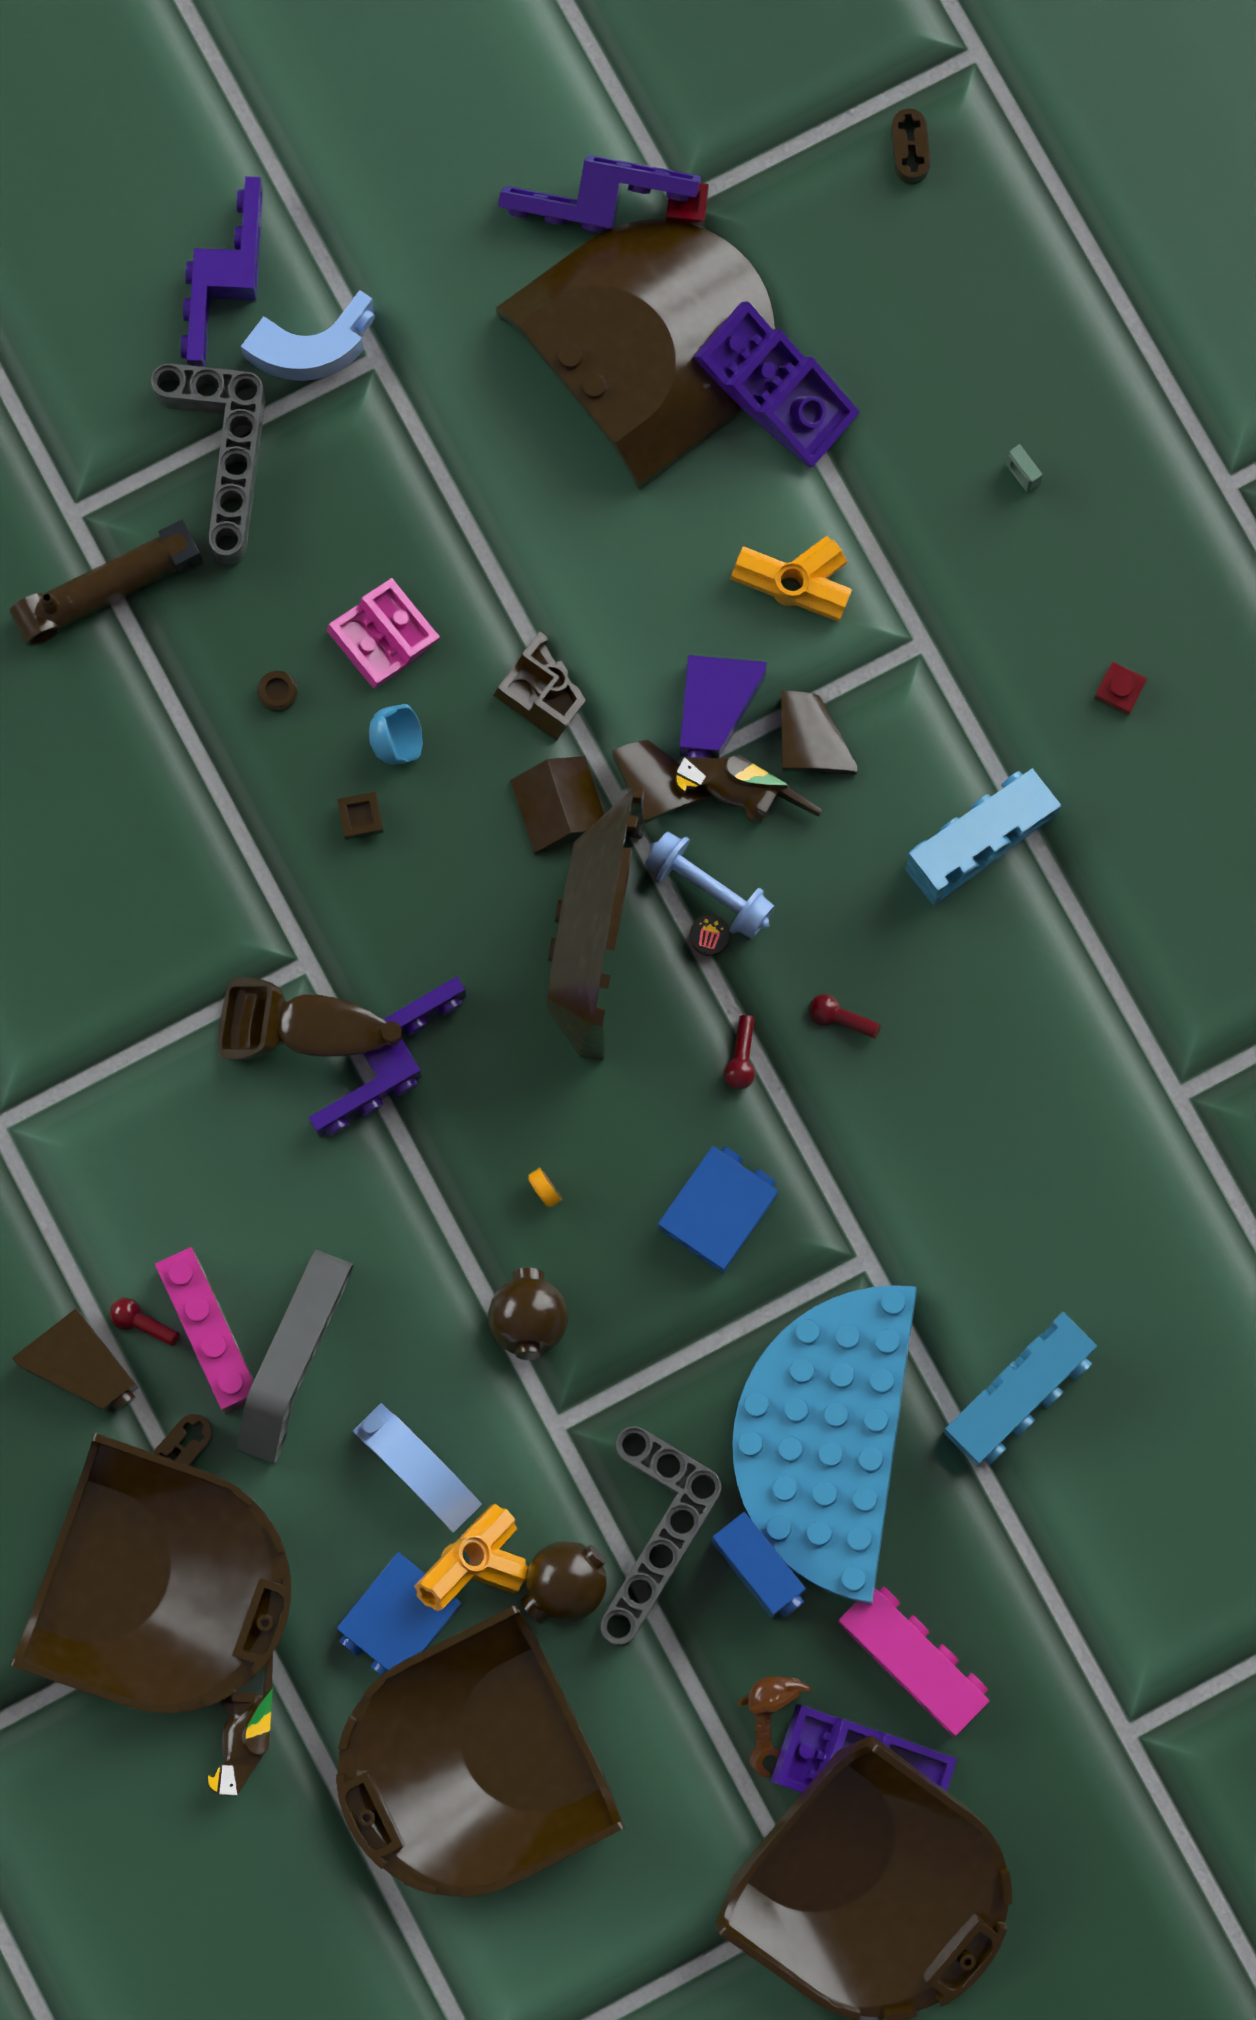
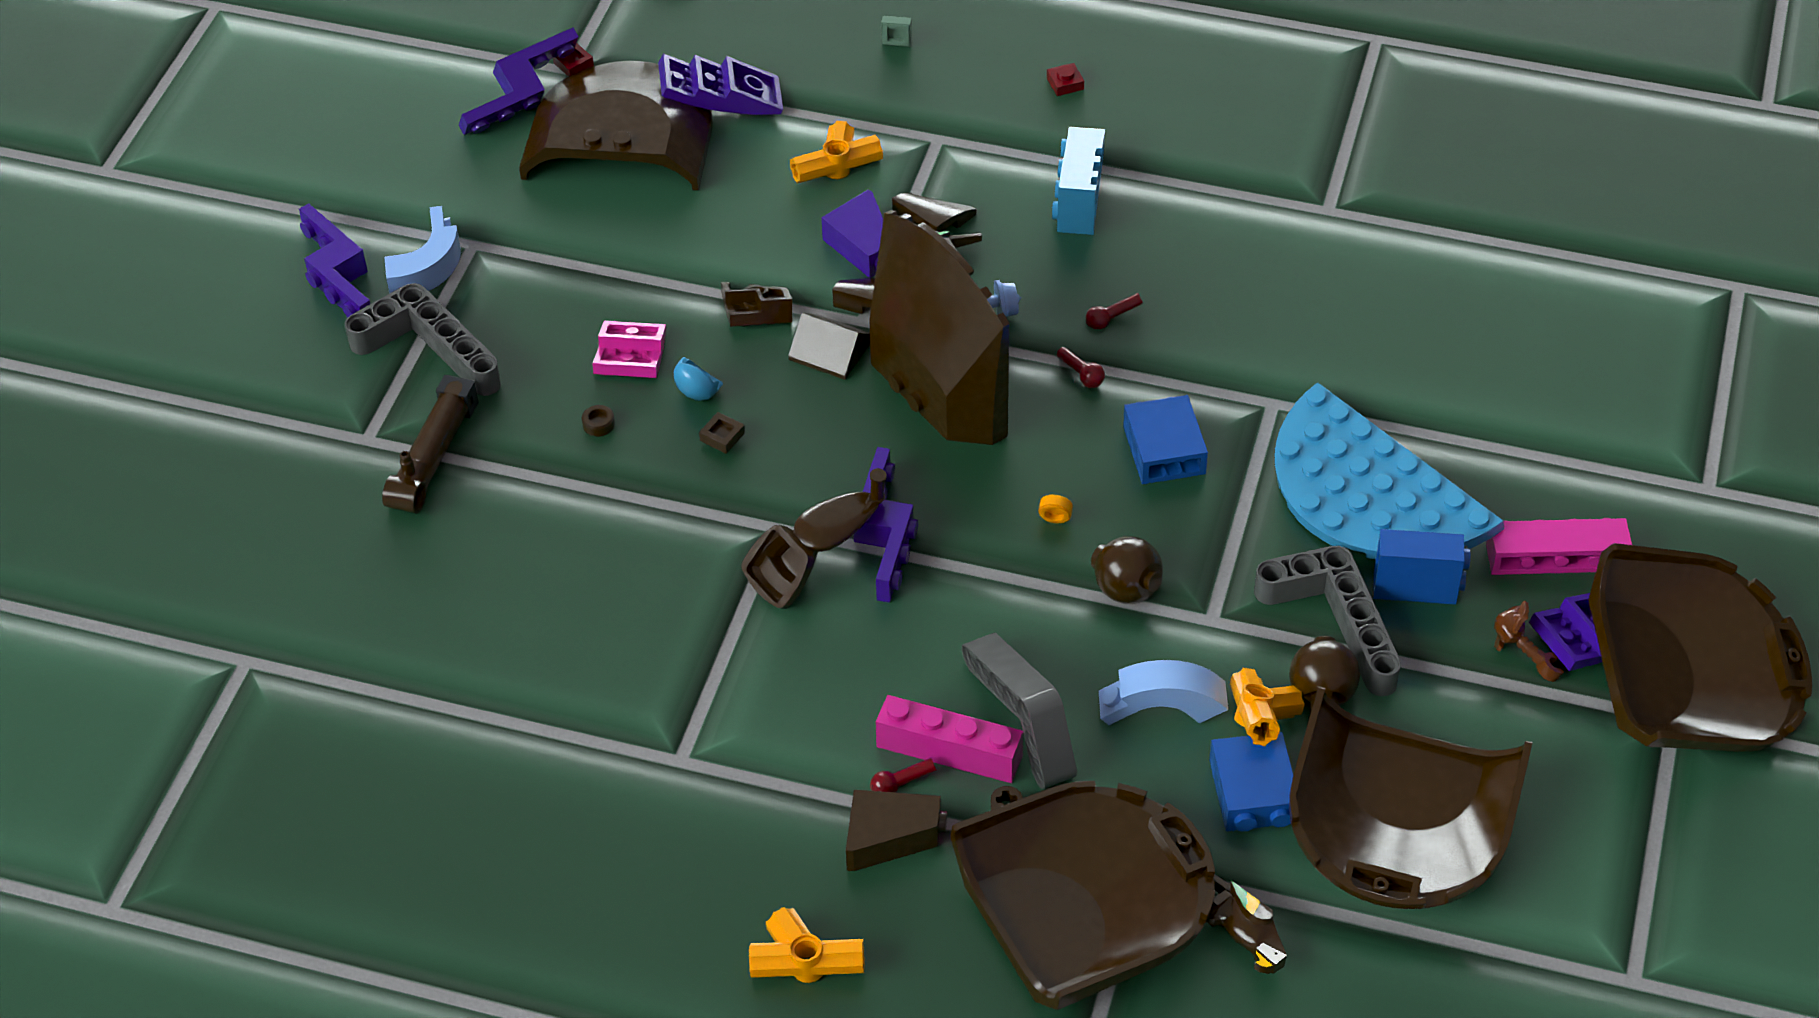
camera: 45 degrees left, 30 degrees down
(1020, 1390) = (1436, 374): dark azure wedge -> none

